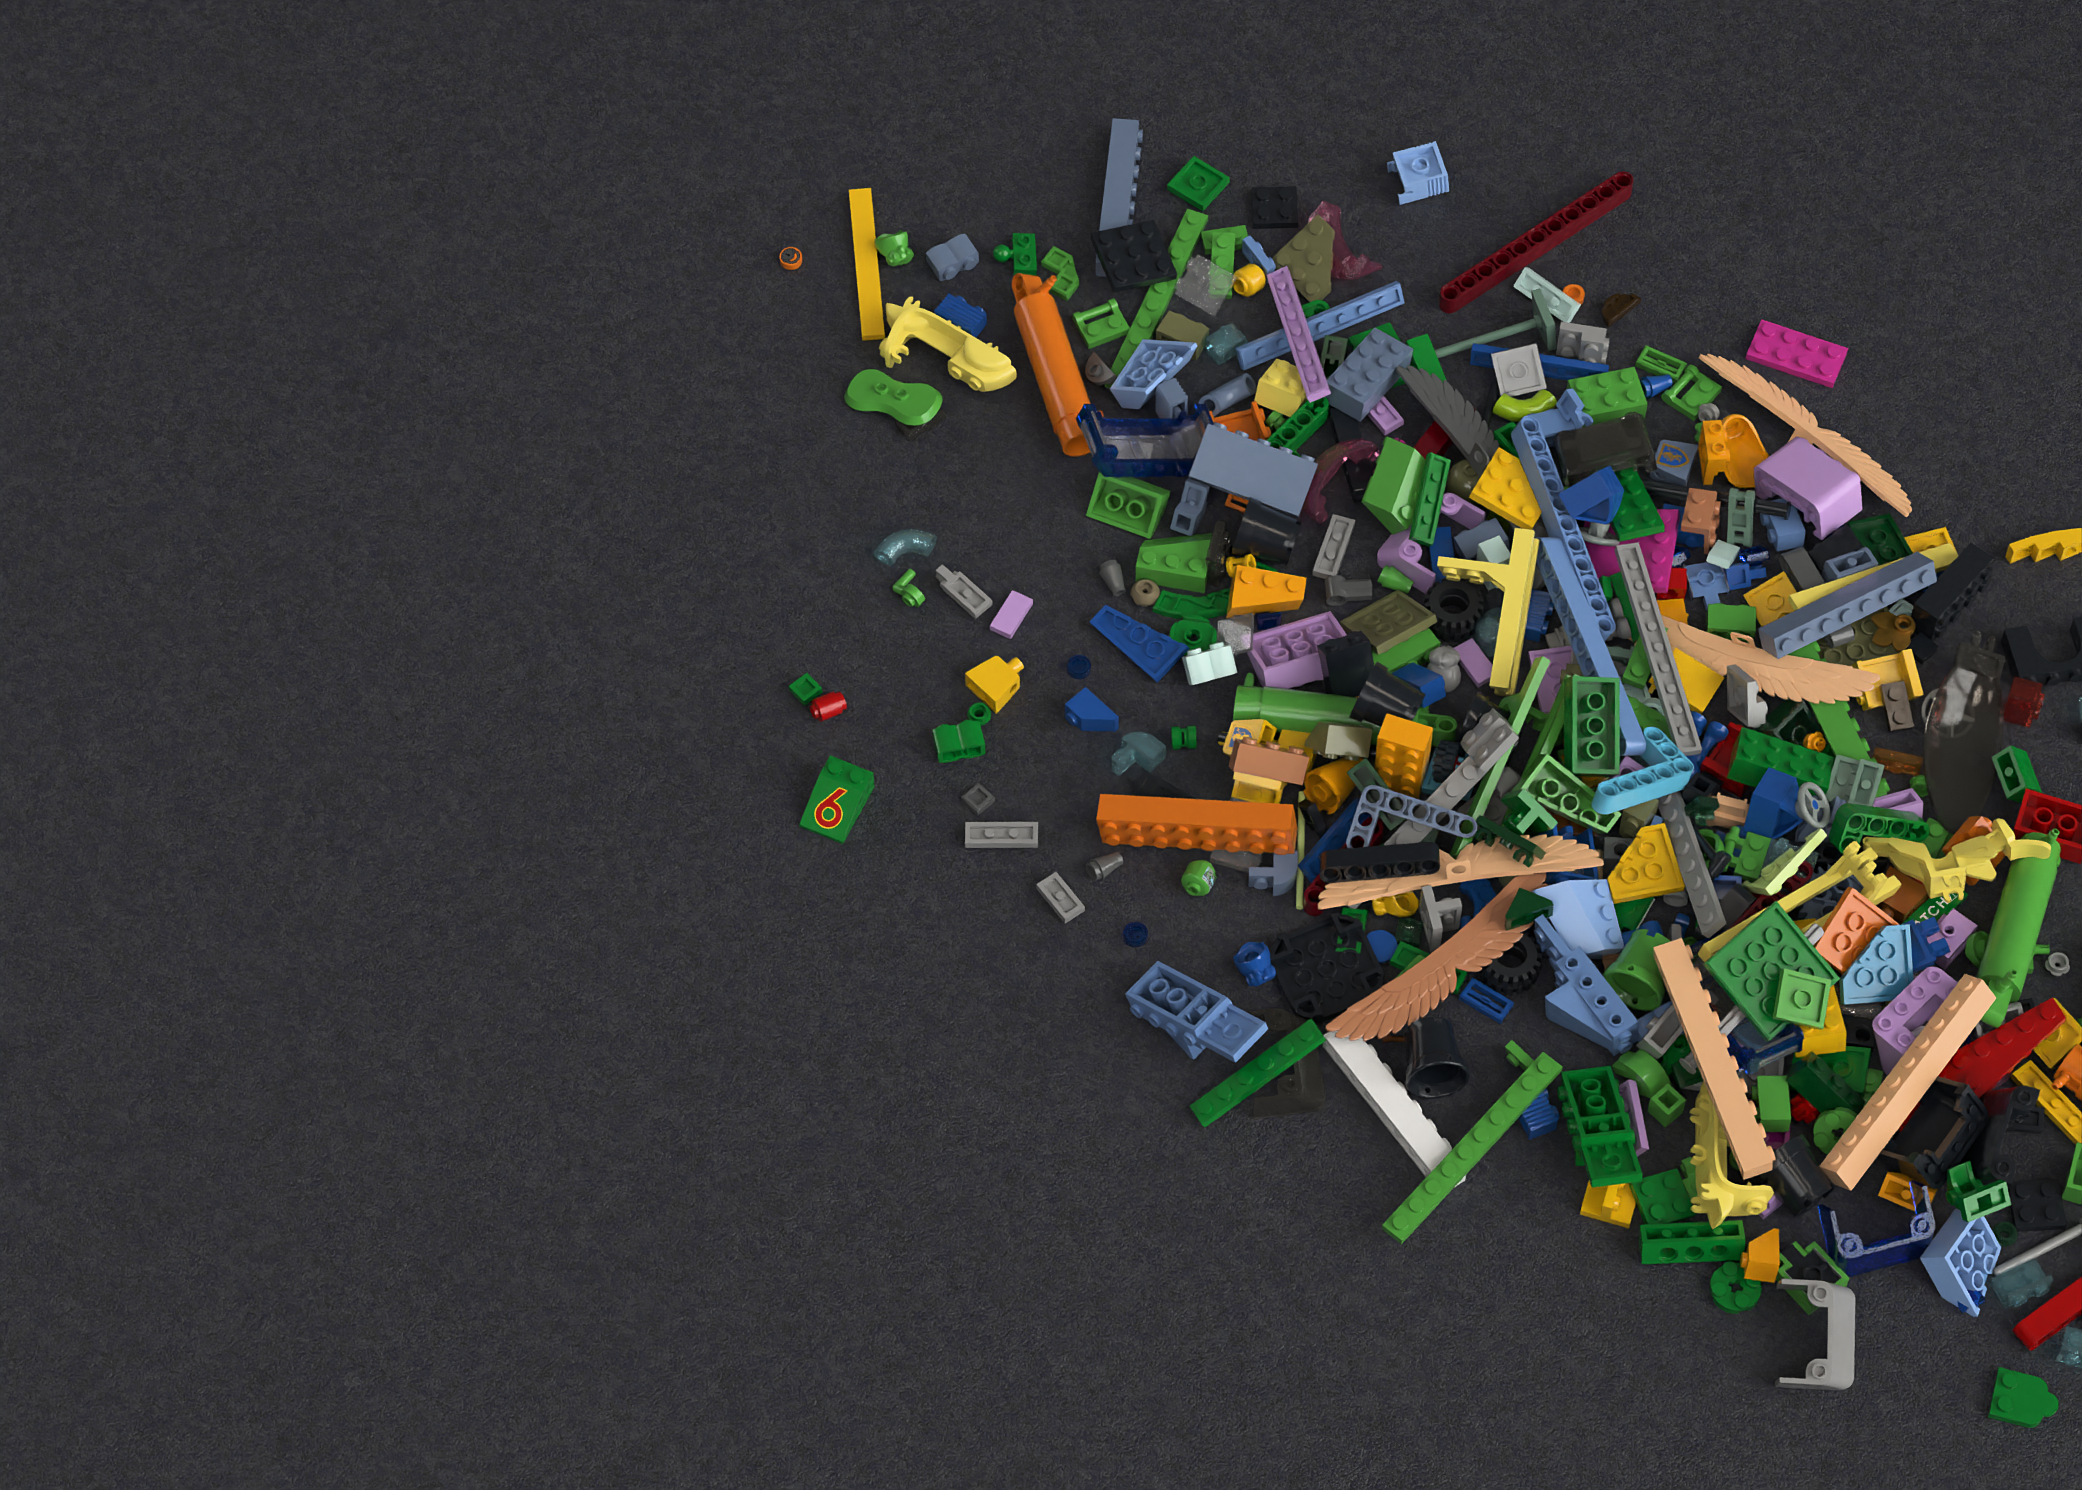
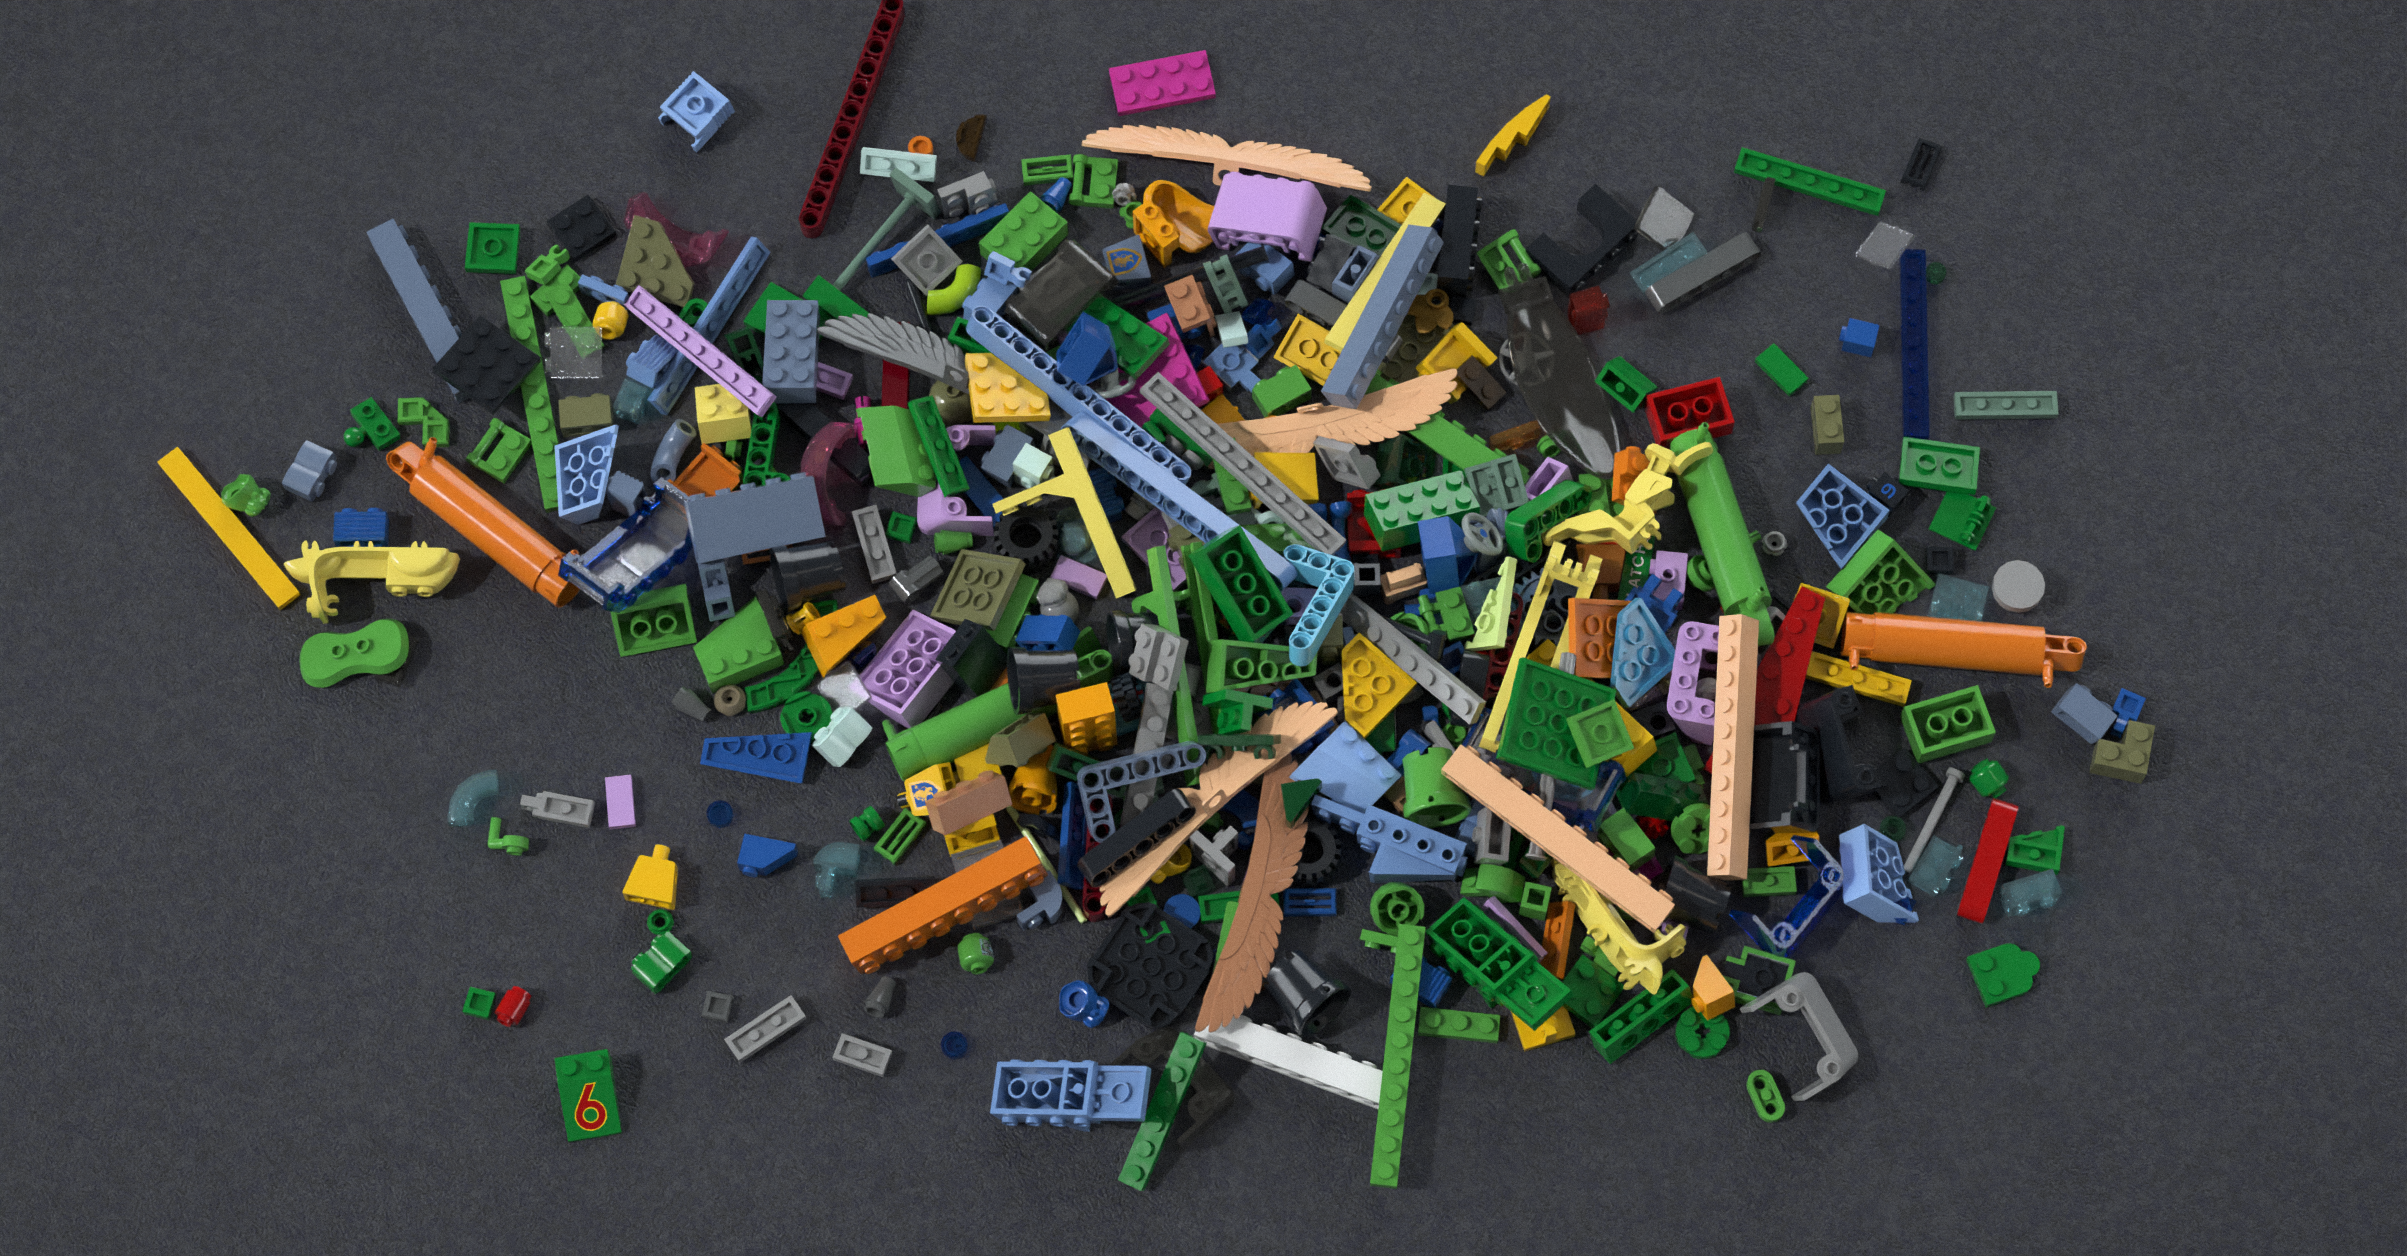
camera: 35 degrees left, 10 degrees up
(790, 258) = (150, 568): tile -> none
(1098, 371) = (533, 503): dark grey plate -> none
(1205, 766) = (907, 843): none -> bright green tile
(1228, 218) = (546, 267): none -> bright green plate
(1256, 322) = (650, 361): none -> medium blue brick
(1363, 549) = (901, 527): none -> green tile
(1445, 707) = (1086, 643): none -> bright green slope
(1449, 891) = (1213, 823): none -> bright green plate
(1540, 1161) = (1459, 1025): none -> bright green plate
(1551, 1037) = (1395, 905): none -> bright green cylinder
(1666, 1144) = (1557, 937): none -> orange plate
(1702, 809) = (1384, 598): clear green tile -> none
(1752, 1368) = (1765, 1097): none -> bright green plate
(1814, 741) = (1432, 465): light orange plate -> none
(1871, 1209) = (1769, 882): none -> bright green plate
(1966, 1193) = (1848, 818): green tile -> none
(1979, 621) = (1496, 258): none -> bright green plate

